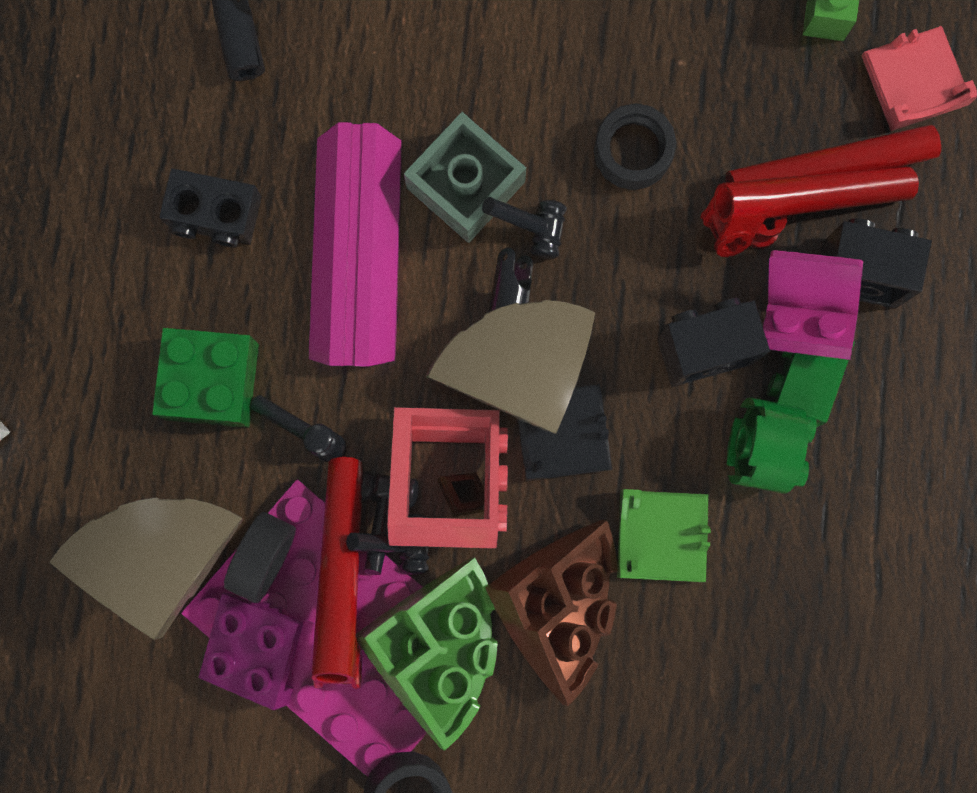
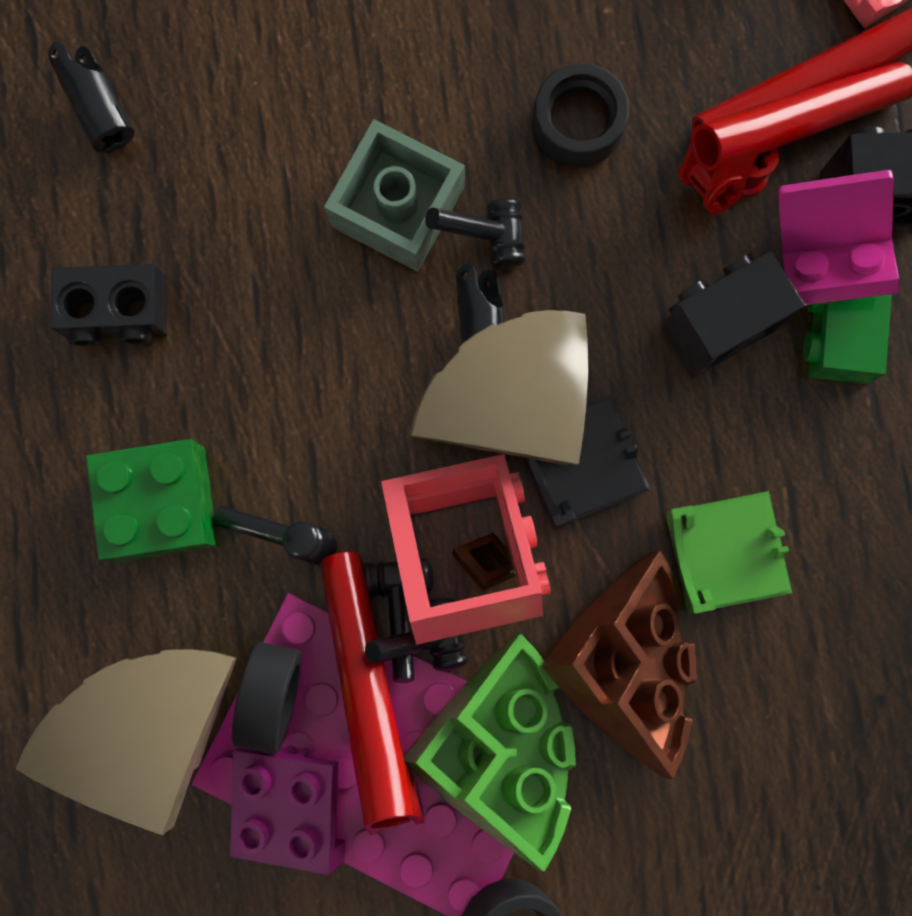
camera: 10 degrees left, 0 degrees up
(355, 246) = (289, 306): dark pink piece -> none
(770, 446) = (828, 417): green brick -> none

